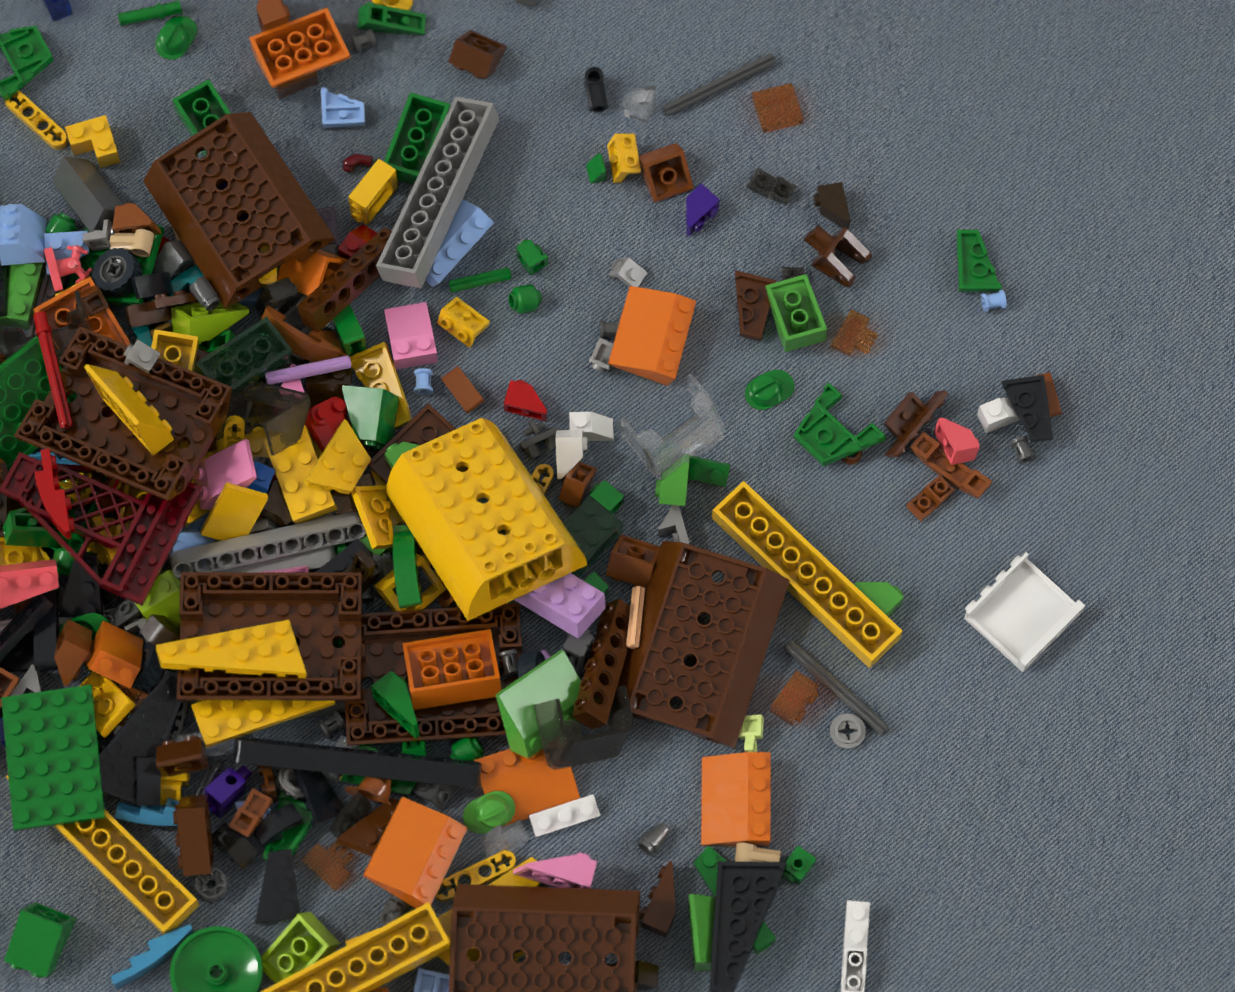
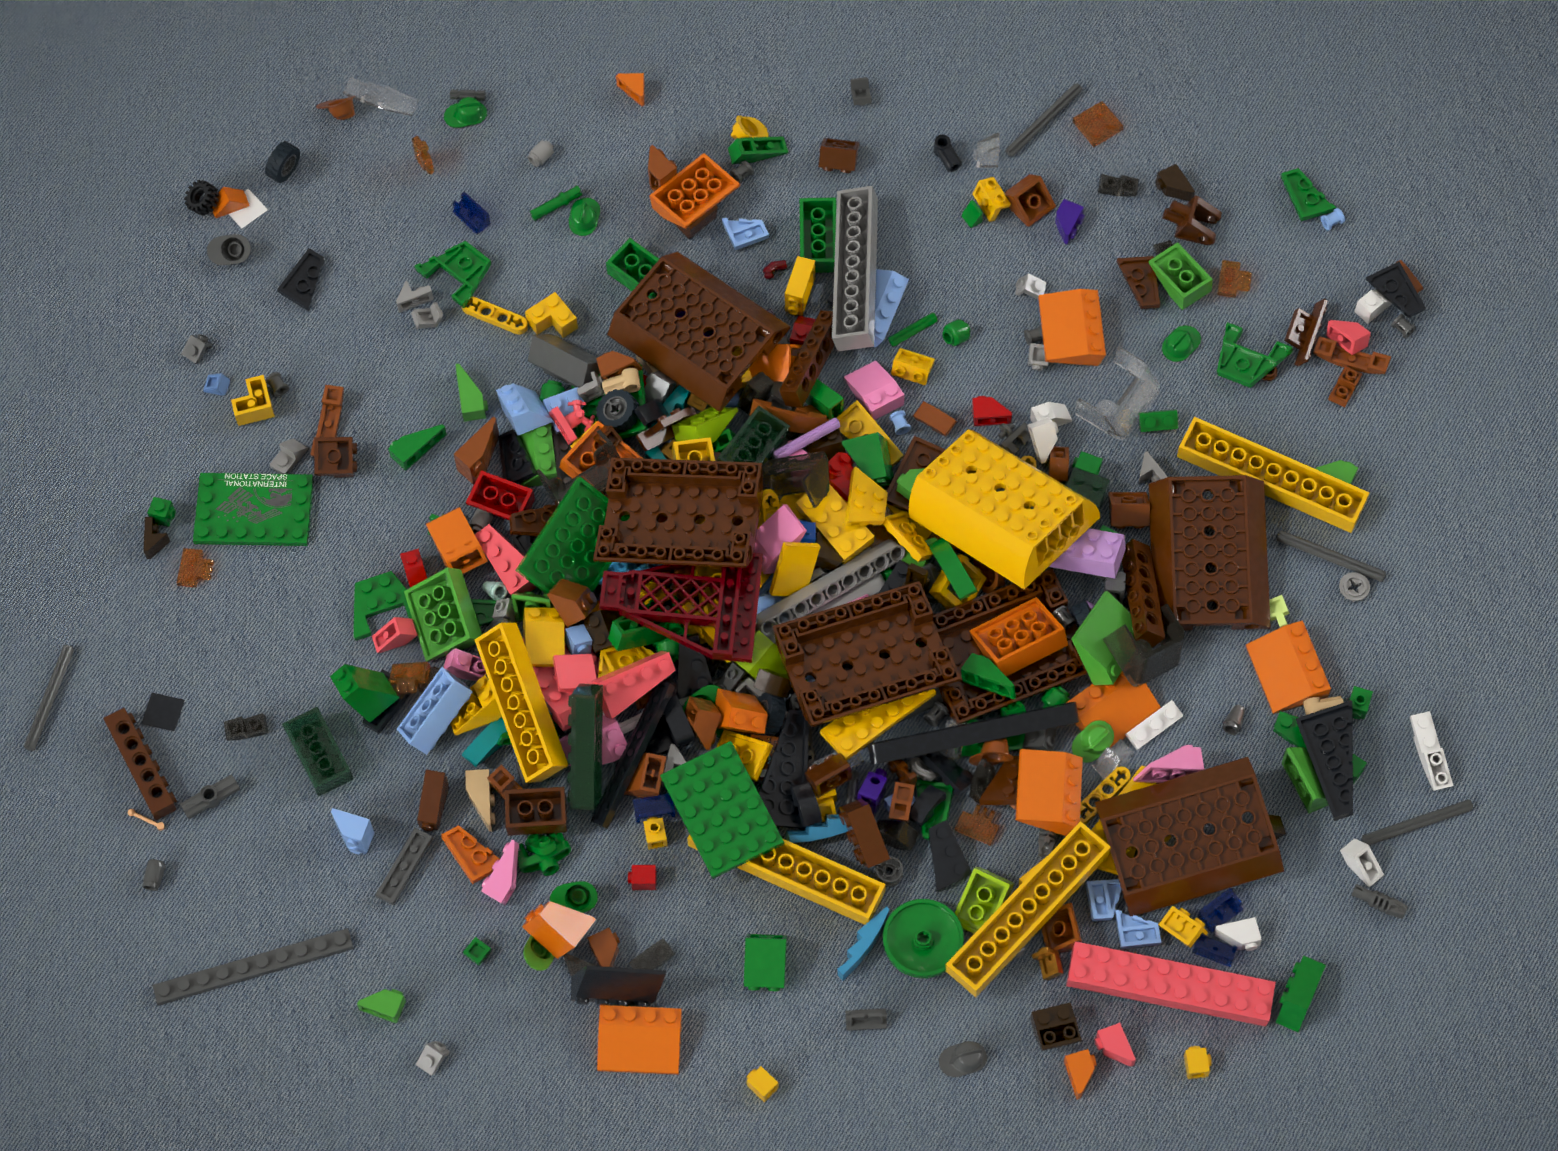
camera: 15 degrees left, 5 degrees down
(44, 333) = (585, 472): red axle -> none
(52, 497) = (648, 598): red slope -> none
(131, 408) = (685, 506): yellow slope -> none
(141, 356) = (676, 461): light grey bracket -> none
(205, 293) = (698, 404): dark grey piece -> none
(239, 651) = (849, 671): yellow wing -> none
(531, 256) = (947, 298): green brick -> none
(635, 617) = (1151, 550): light nougat axle -> none
(661, 911) = (1263, 765): reddish brown slope -> none
(673, 483) = (1139, 434): bright green slope -> none
(794, 698) = (1302, 574): clear orange brick -> none
(1022, 612) = (1455, 451): white panel -> none

